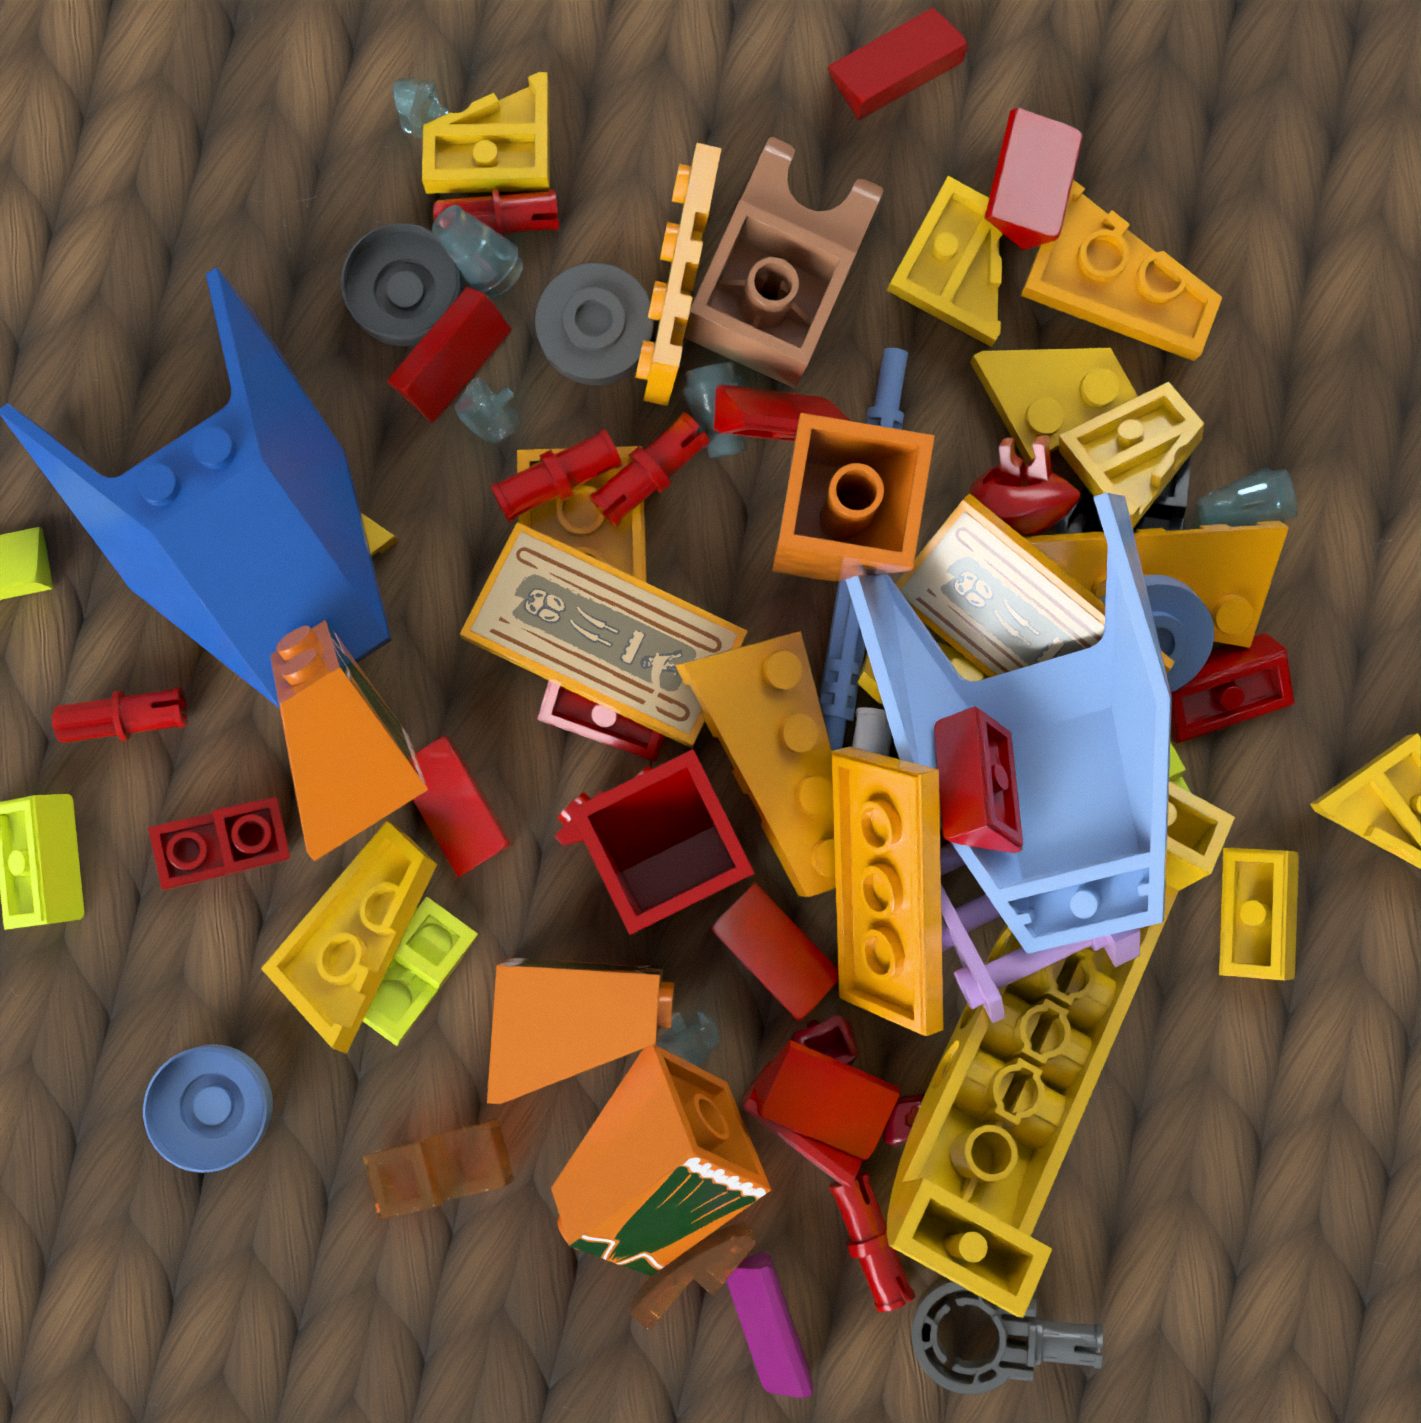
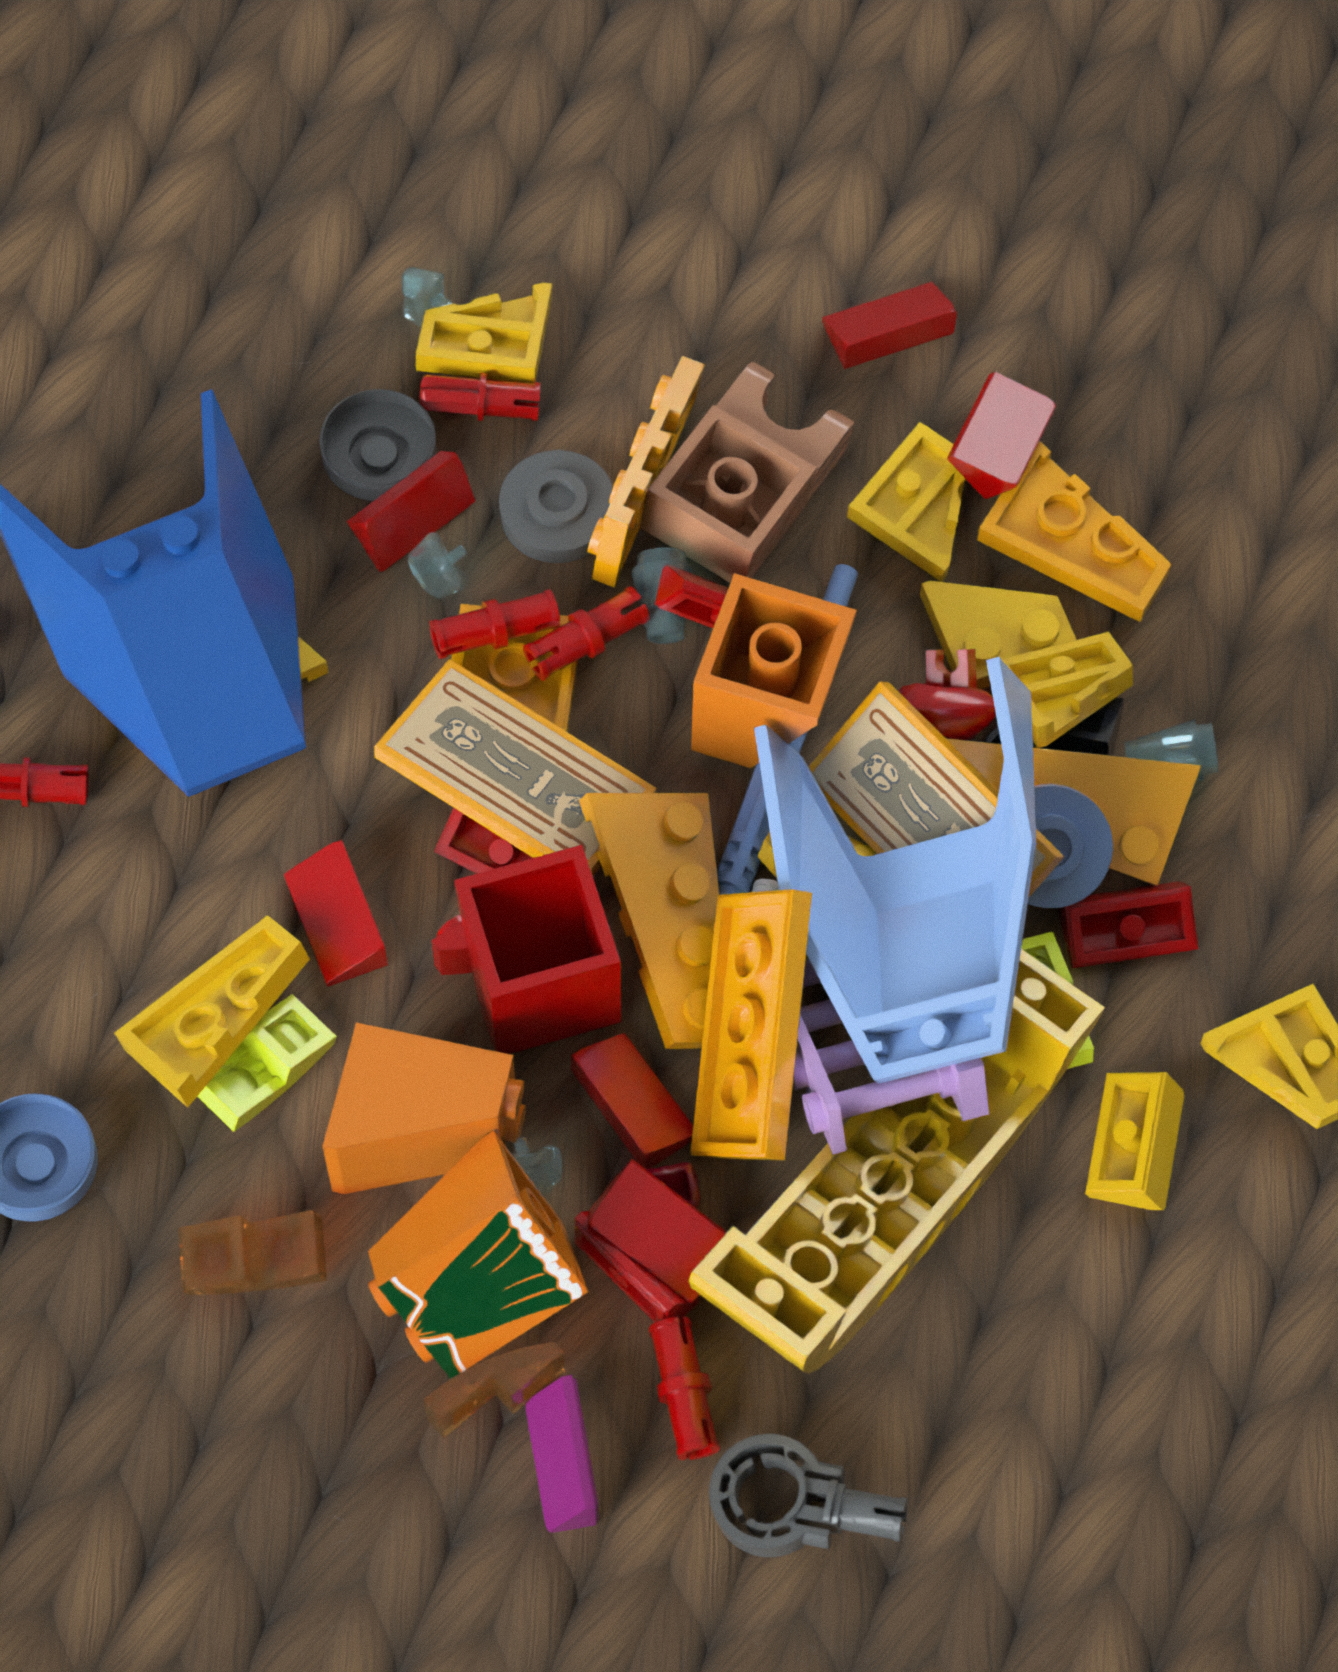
camera: 10 degrees right, 20 degrees down
(219, 843) = (96, 918): red slope -> none
(341, 740) = (238, 811): orange slope -> none
(479, 252) = (457, 420): clear light blue cone -> none
(977, 782) = (854, 927): red slope -> none

